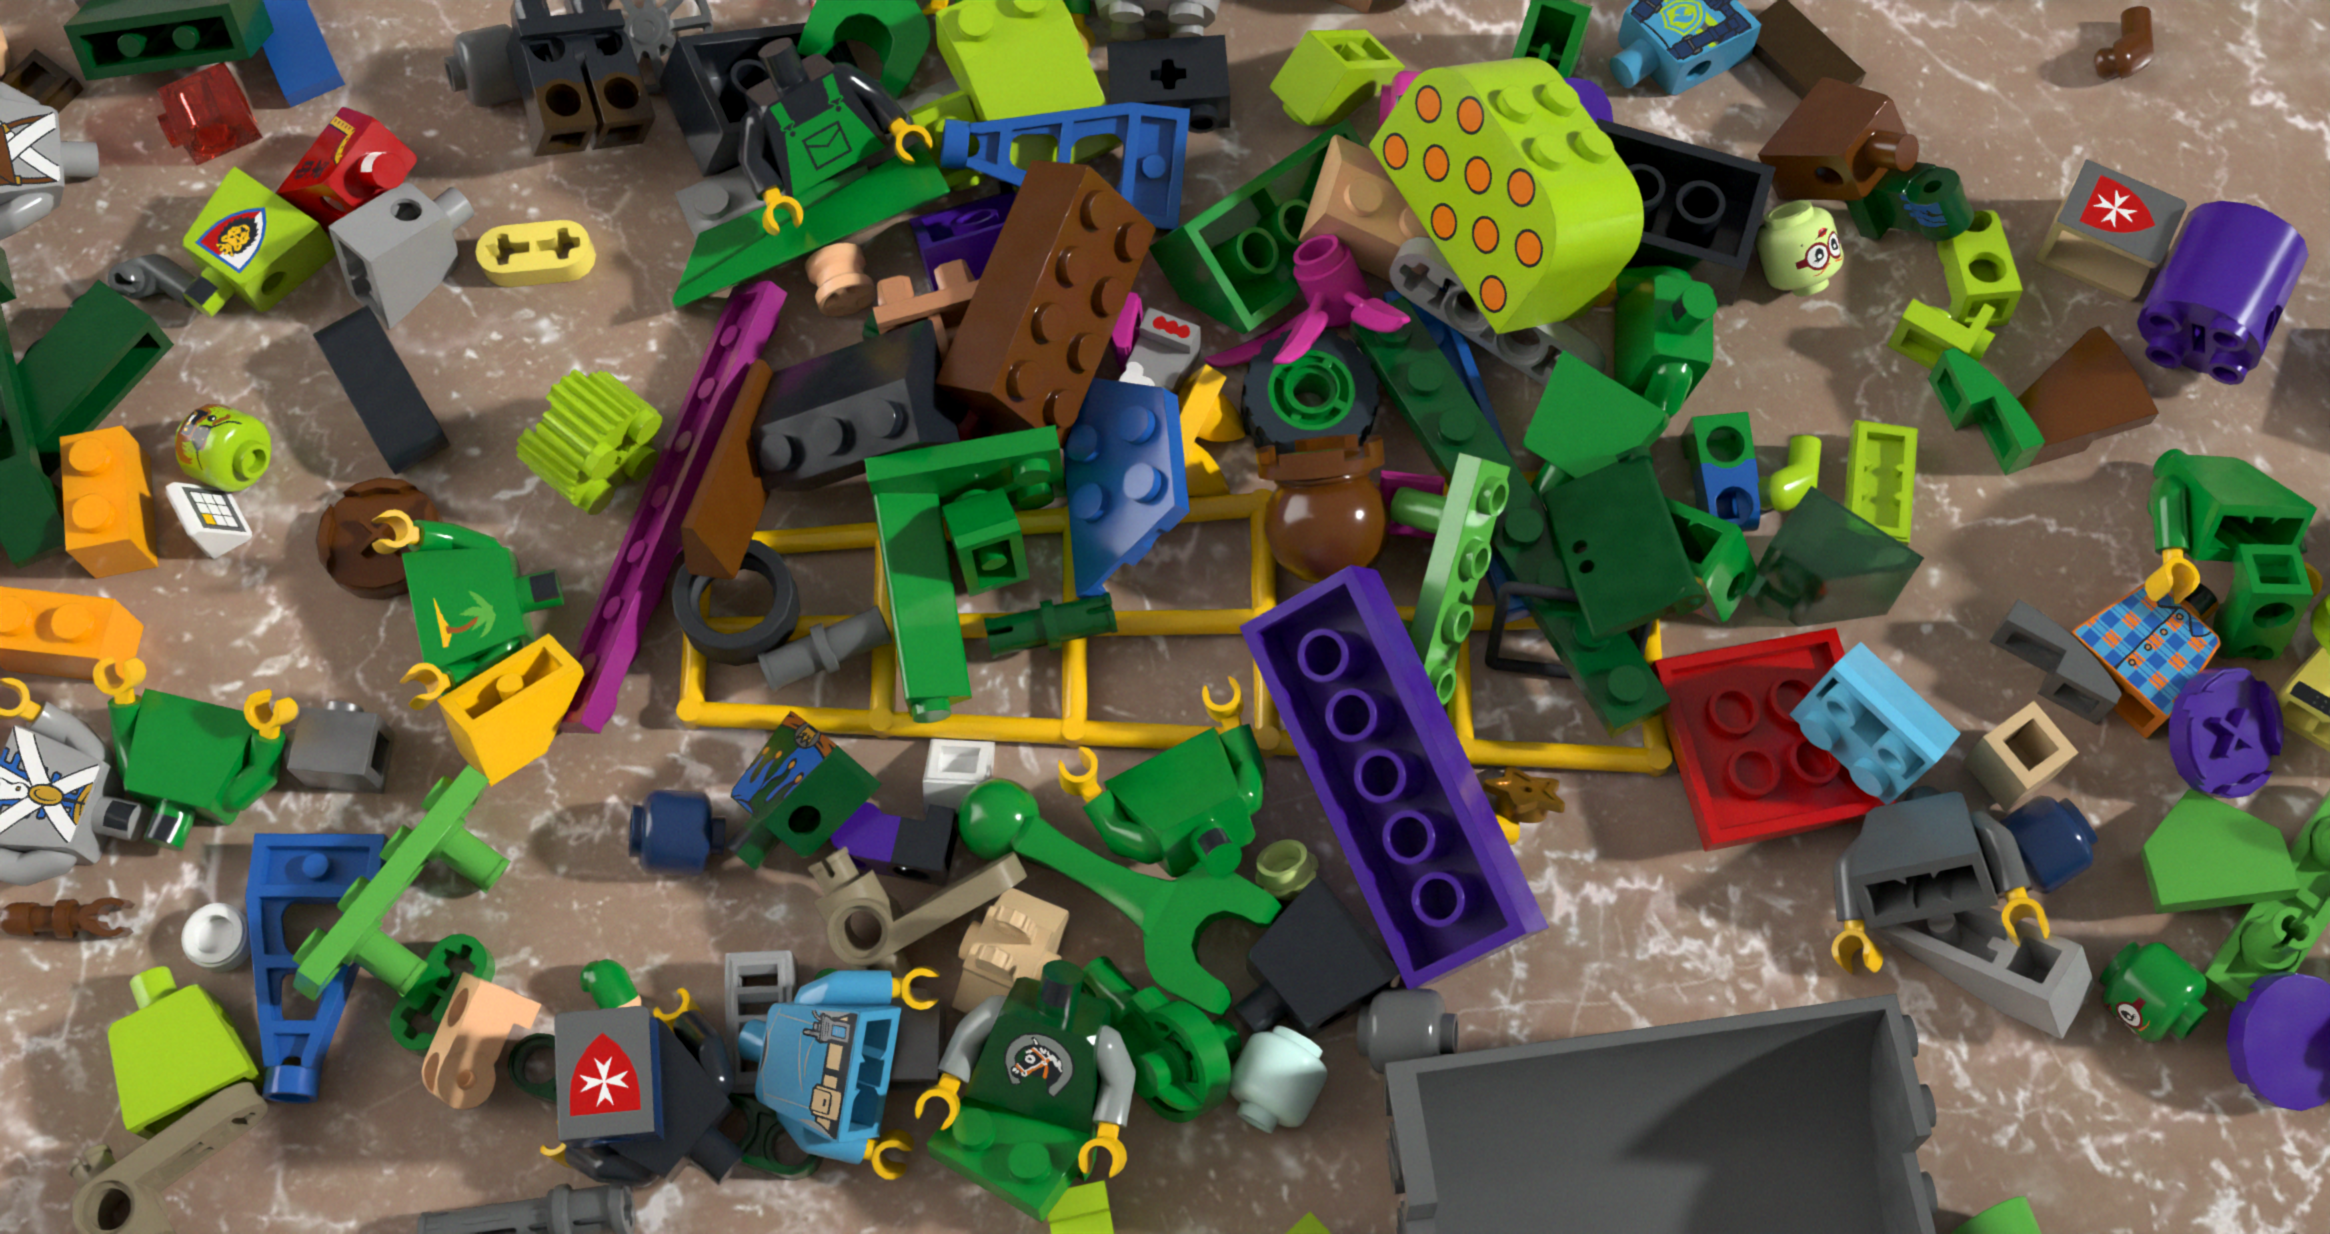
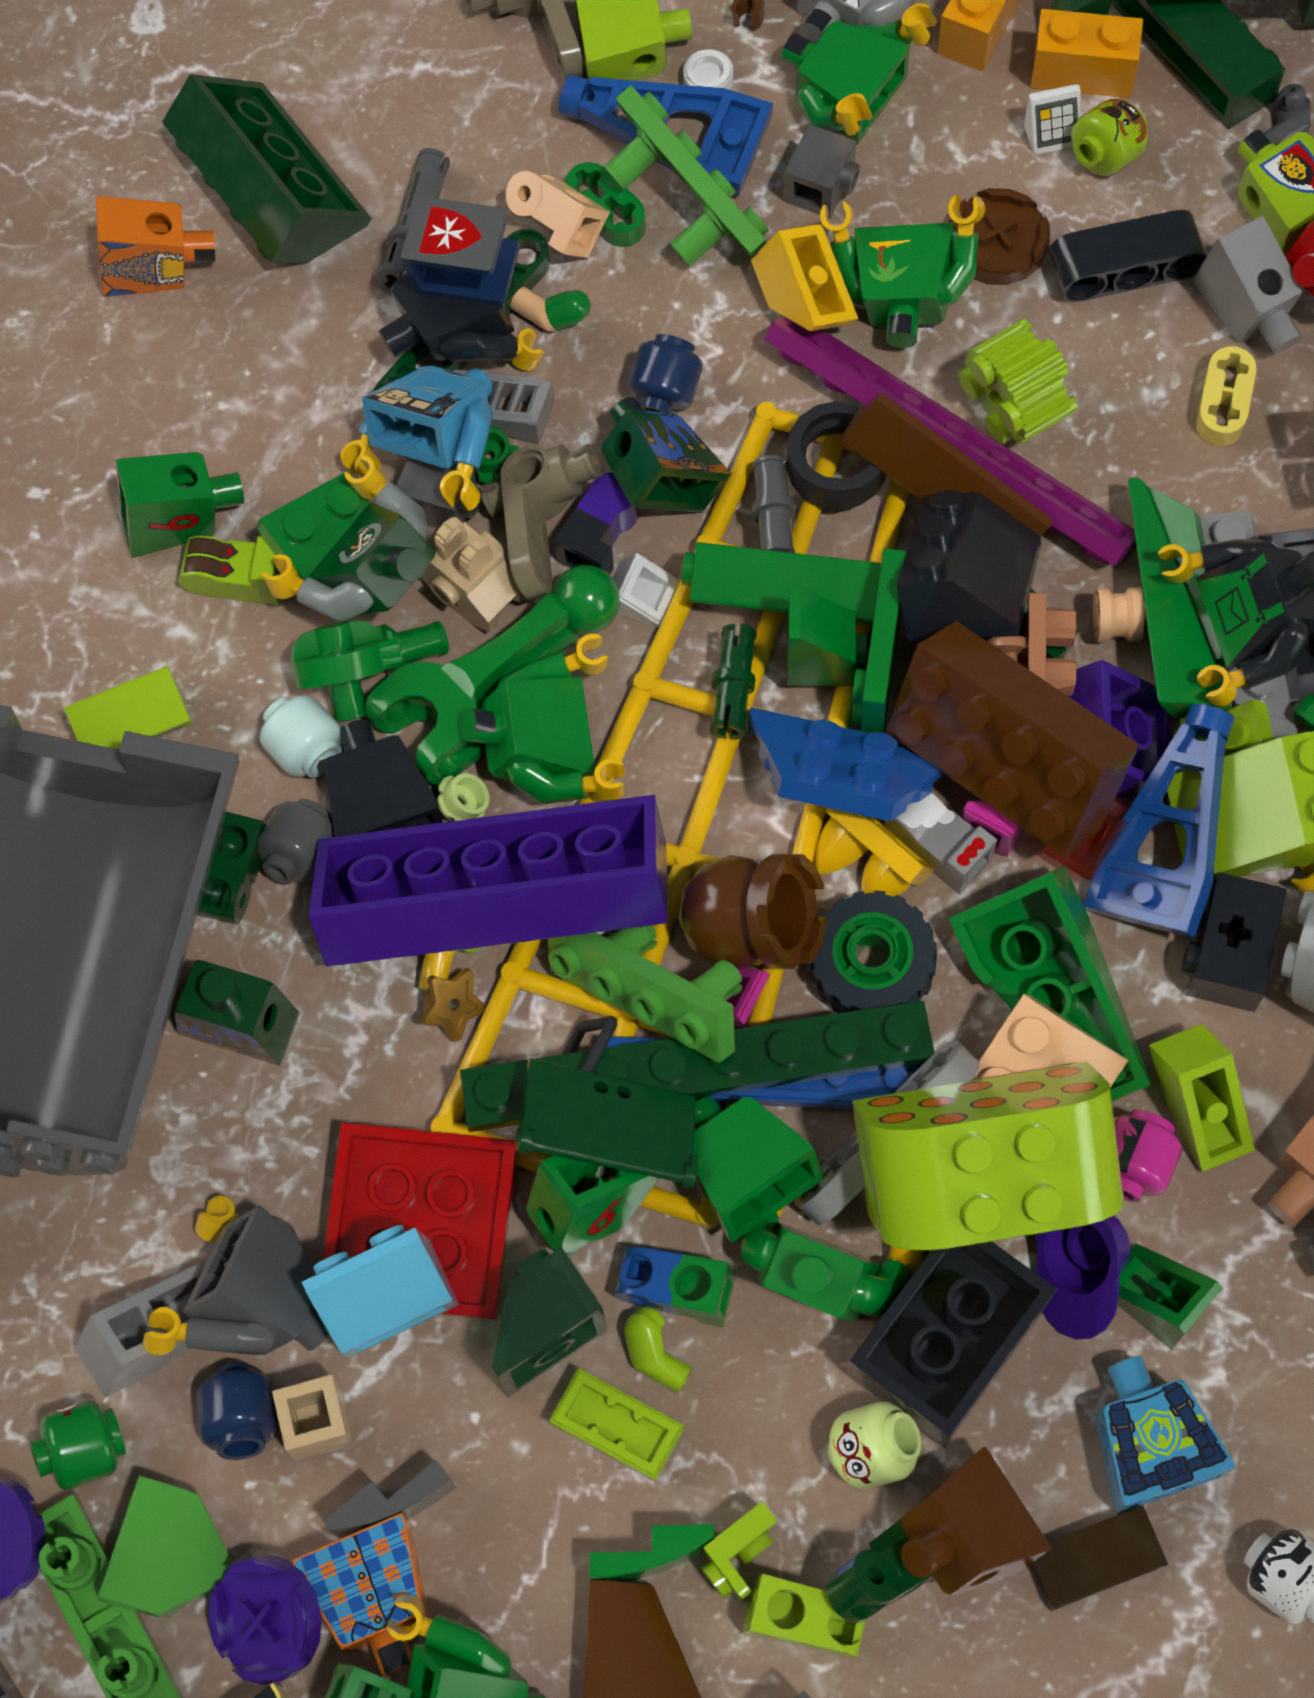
camera: 110 degrees right, 0 degrees up
(1334, 296) = (972, 1008): dark pink plant -> none
(1634, 993) = (230, 1009): none -> dark green torso

